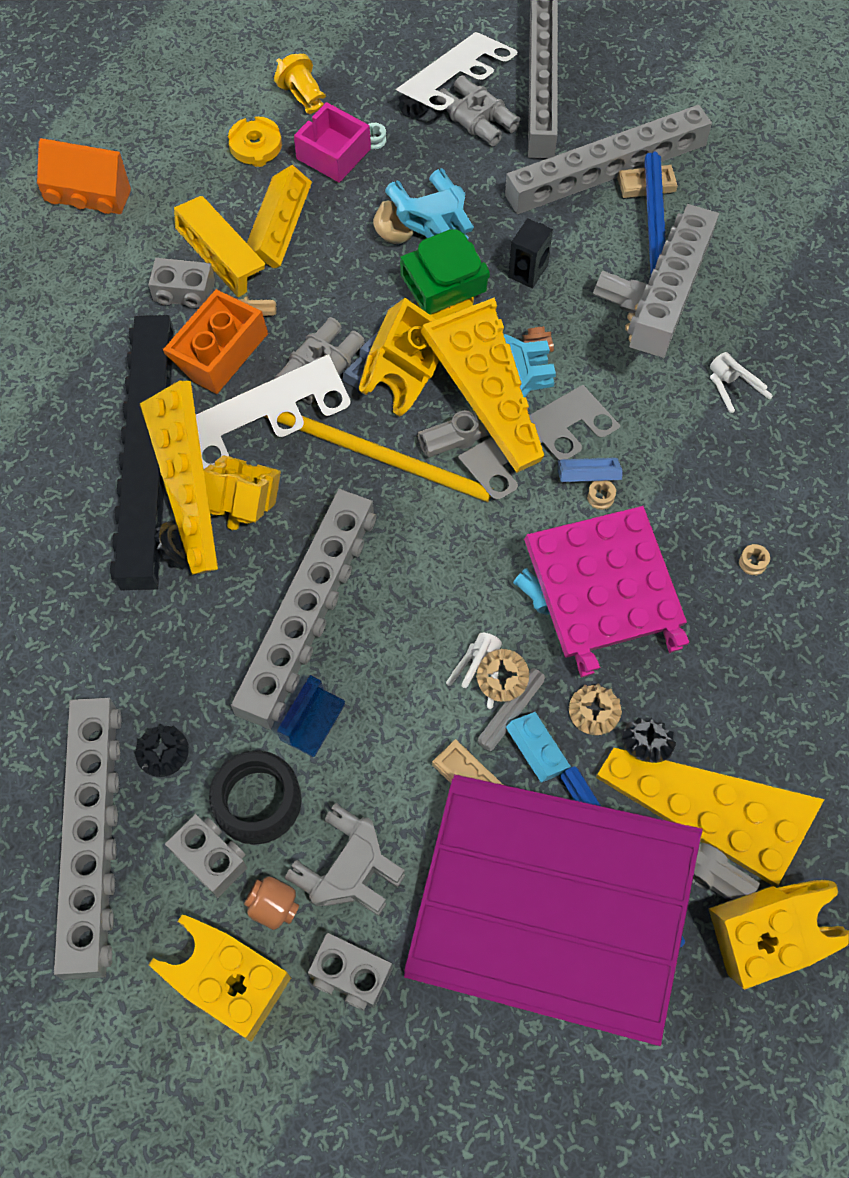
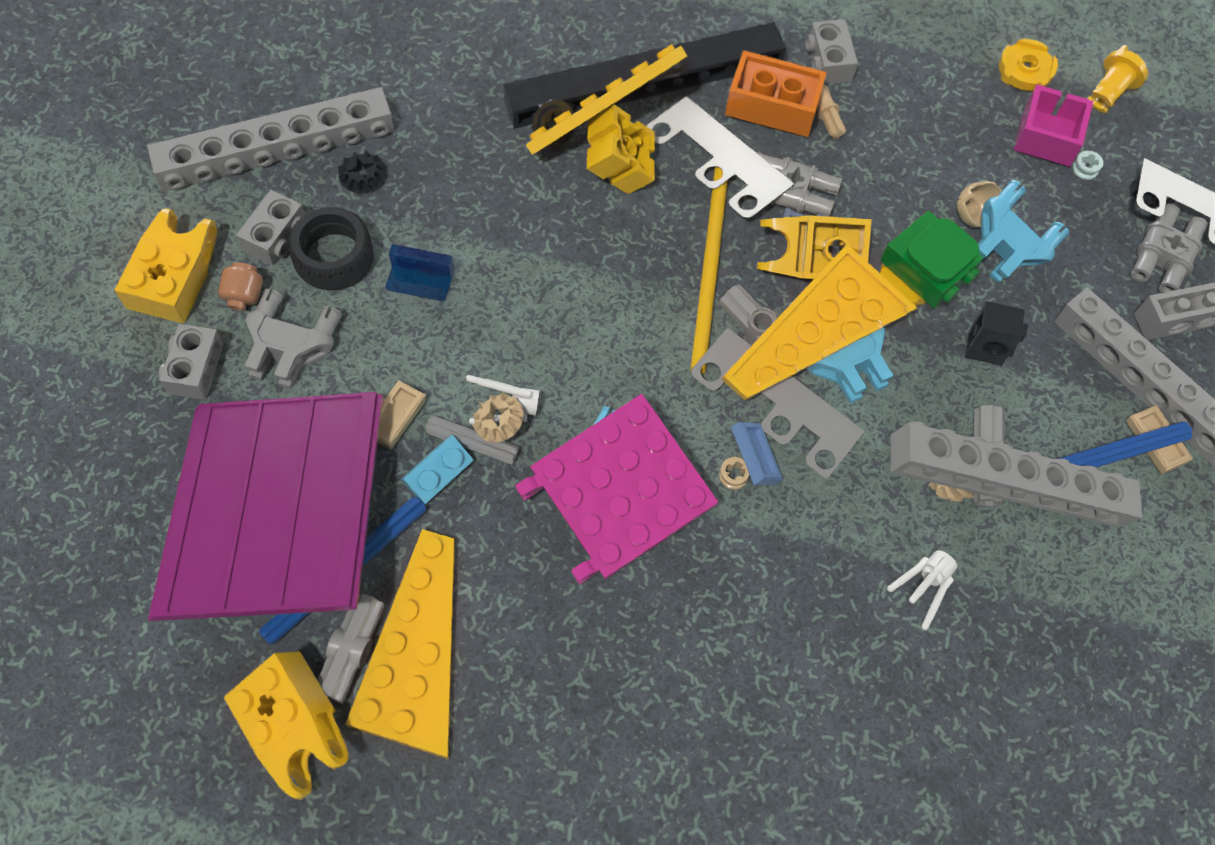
camera: 70 degrees right, 0 degrees up
(217, 243) = (889, 66): yellow panel -> none
(279, 215) = (945, 109): yellow panel -> none
(344, 510) = (514, 229): light grey brick -> none
(539, 334) = (901, 373): nougat plate -> none
(583, 717) = (504, 524): tan gear -> none
(636, 742) = (459, 579): black gear -> none
(762, 554) = (699, 648): tan bush -> none

